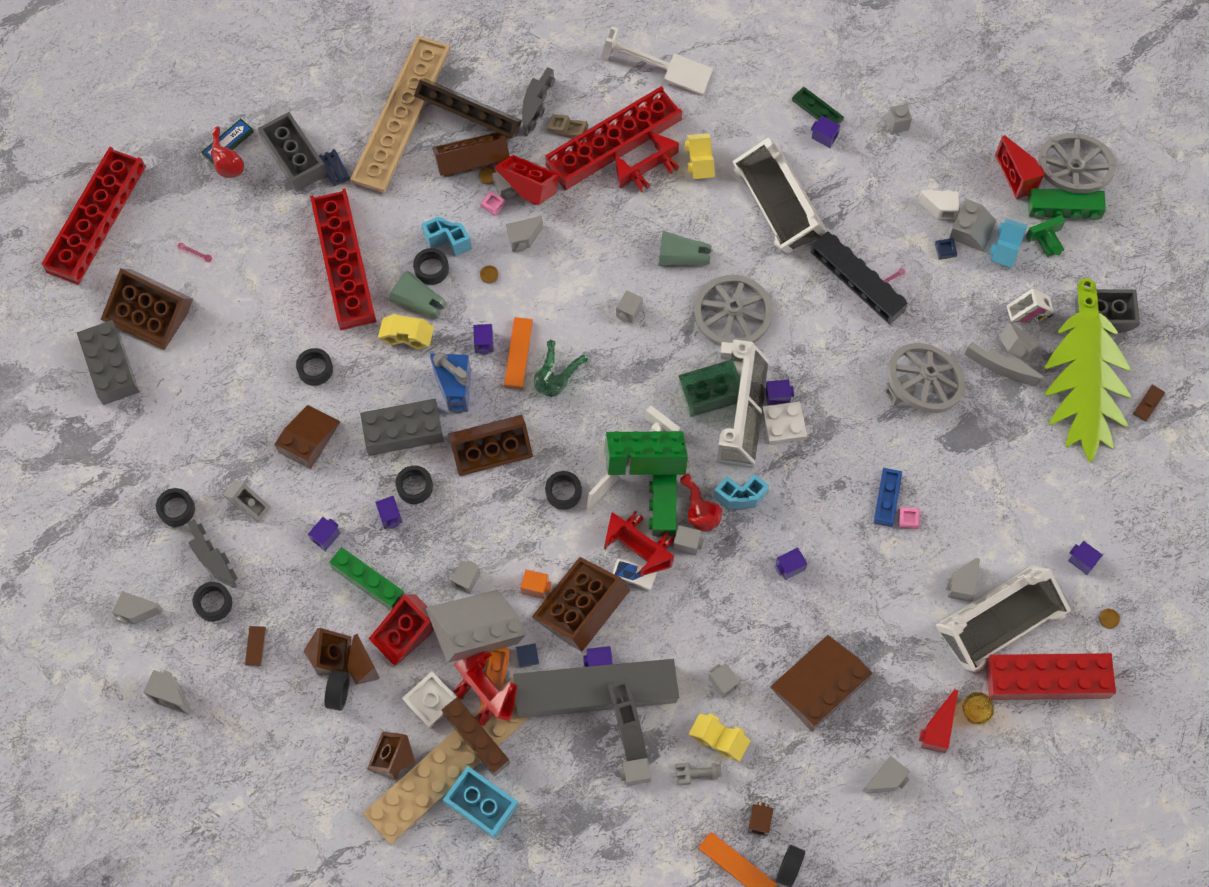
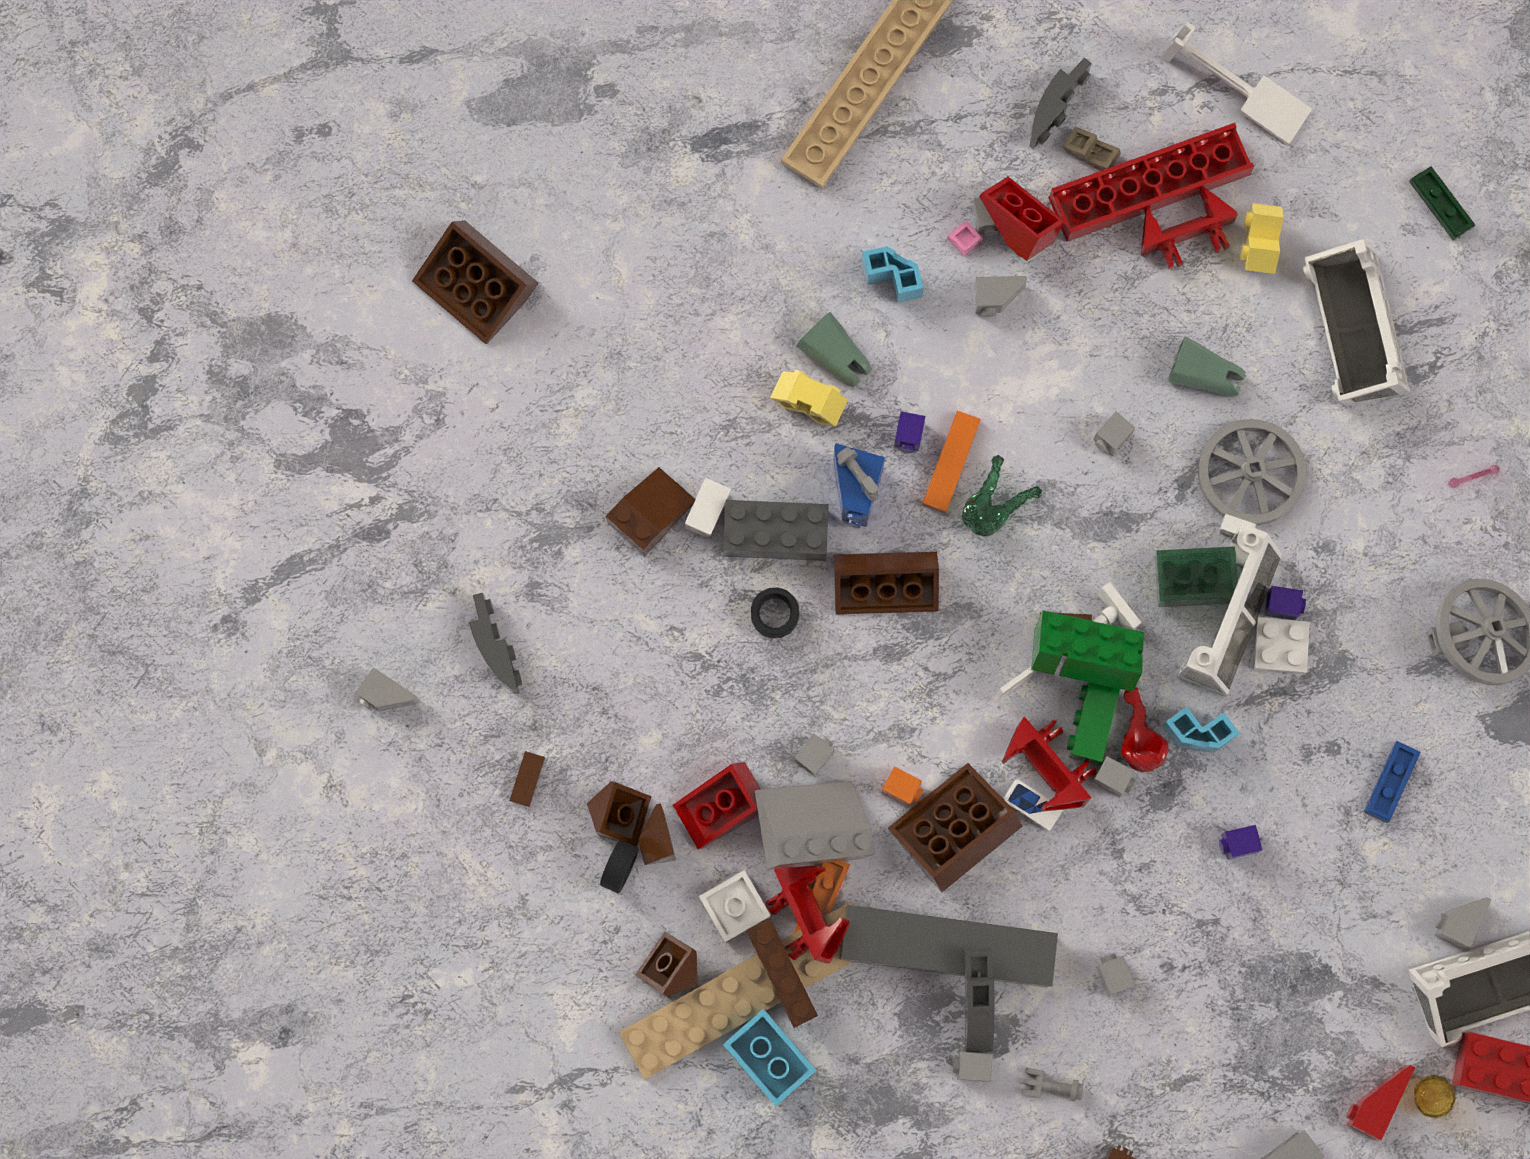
camera: 15 degrees right, 10 degrees up
(93, 216) = (429, 130): red tile -> none
(107, 362) = (410, 346): dark grey brick -> none
(166, 691) = (406, 814): light grey slope -> none
(168, 495) = (461, 548): black tyre -> none
(206, 588) = (475, 689): black tyre -> none
(208, 258) = (568, 226): clear pink hinge -> none
(226, 161) = (619, 96): red hair -> none
(230, 138) = (627, 63): tile -> none
(246, 500) = (553, 581): light grey slope -> none
(292, 151) = (711, 101): dark grey brick -> none
(309, 354) = (668, 400): black tyre -> none
(324, 533) = (645, 650): dark purple brick -> none
(328, 156) = (757, 116): dark blue tile -> none
(343, 260) = (747, 273): red tile -> none
(348, 423) = (707, 508): none -> white hinge
(366, 578) = (687, 728): green brick -> none
(389, 512) = (734, 644): dark purple brick -> none
(431, 253) = (862, 292): black tyre -> none
(468, 108) = (962, 94): dark brown brick -> none
(471, 153) = (952, 159): reddish brown slope -> none
(486, 176) = (965, 195): pearl gold piece -> none
(489, 274) = (937, 339): pearl gold piece -> none
(527, 655) = (870, 878): dark blue tile -> none
(560, 476) = (953, 682): black tyre -> none
(598, 656) = (960, 906): dark purple brick -> none
(728, 741) = (1082, 1041): light yellow brick -> none
(821, 682) = (1240, 1008): reddish brown slope -> none
(825, 131) = (1443, 241): dark purple brick -> none
(859, 277) = (1434, 465): black brick -> none
(909, 518) = (1412, 817): bright pink tile -> none

